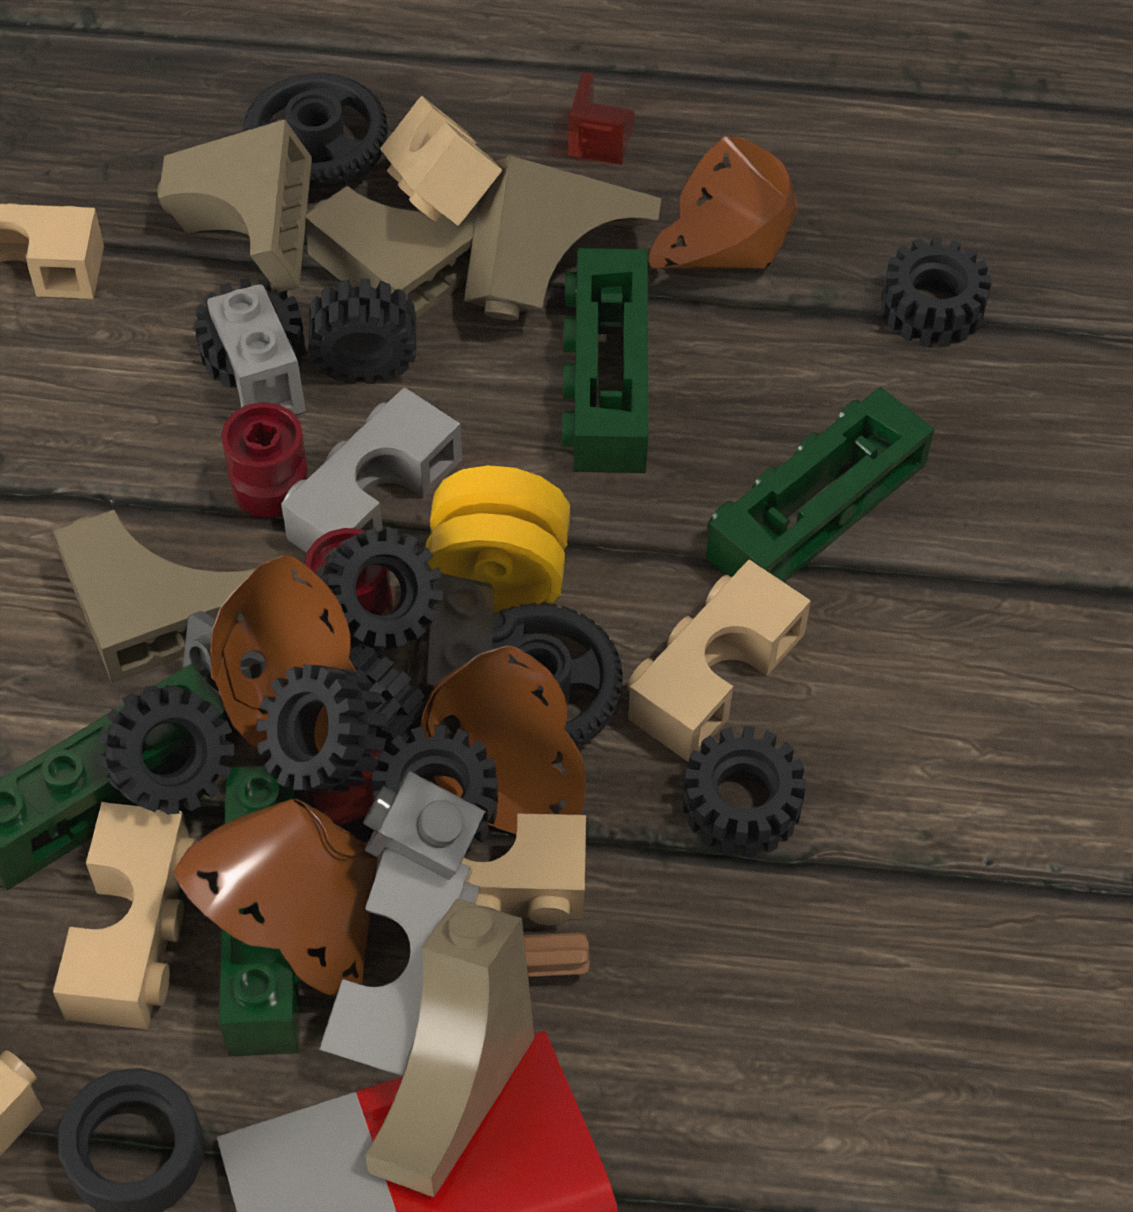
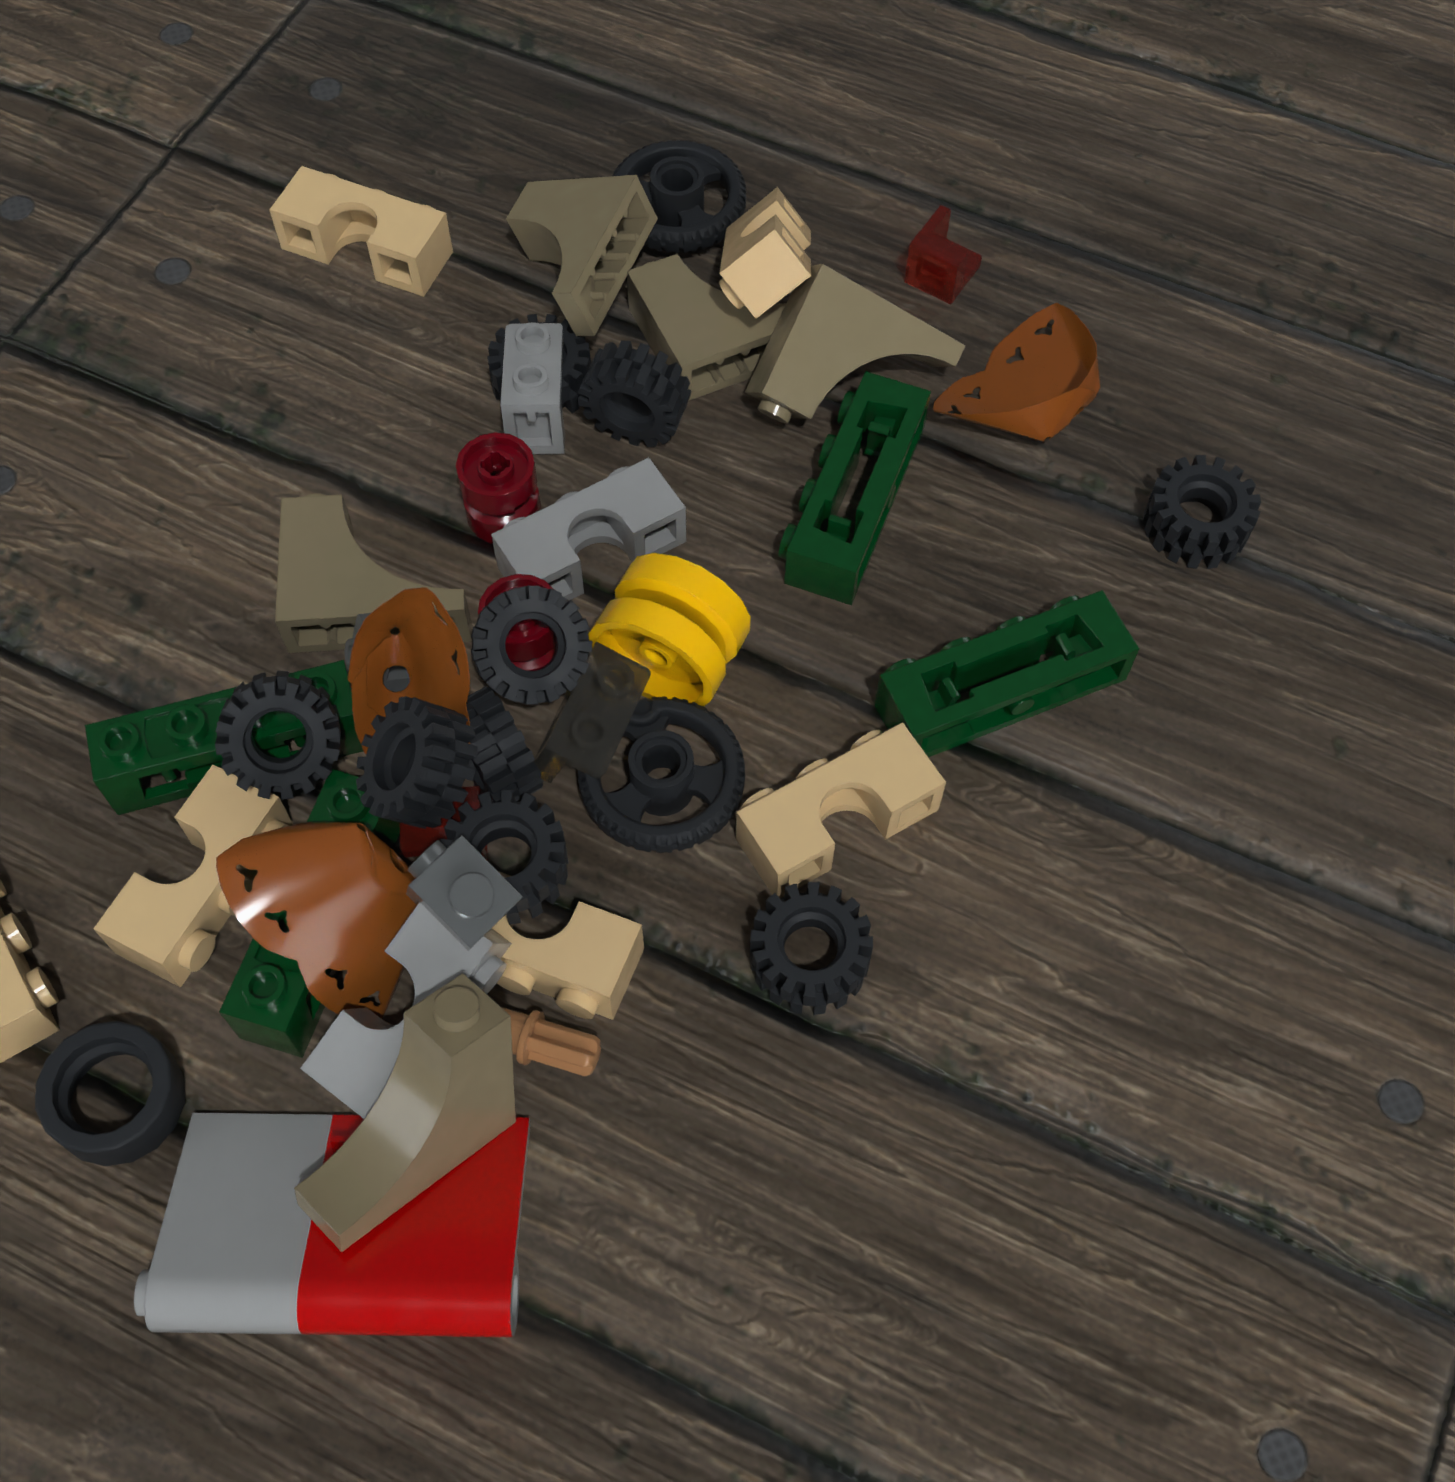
camera: 20 degrees right, 5 degrees up
(516, 728) = (601, 826): dark orange piece -> none

